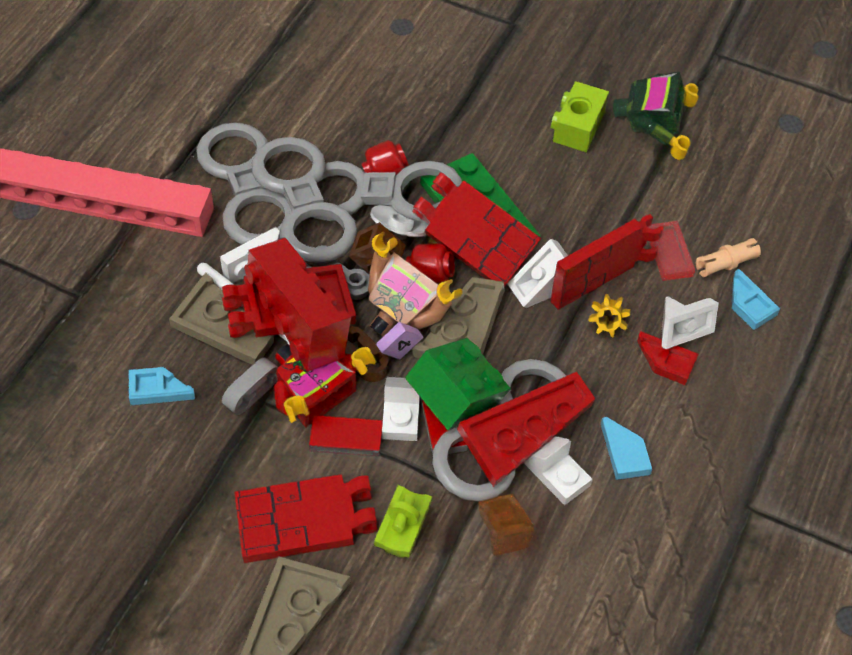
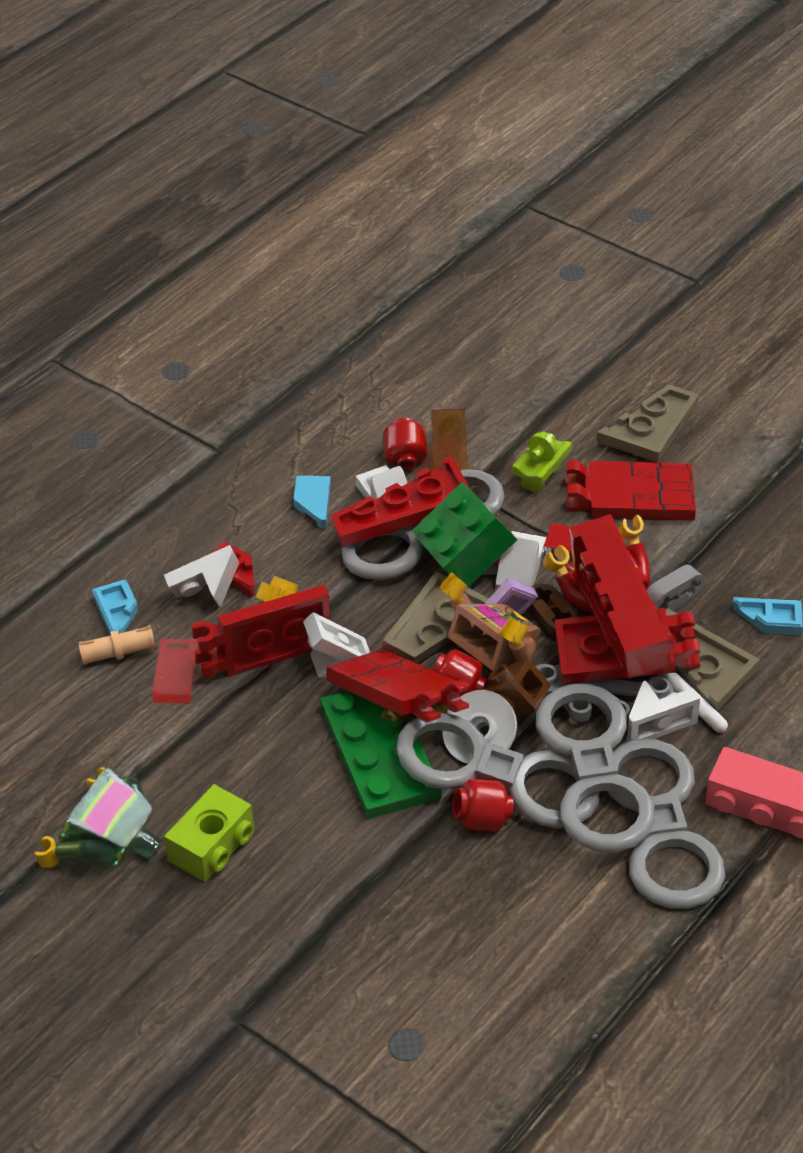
camera: 165 degrees left, 10 degrees down
(555, 525) = (405, 443): none -> red head

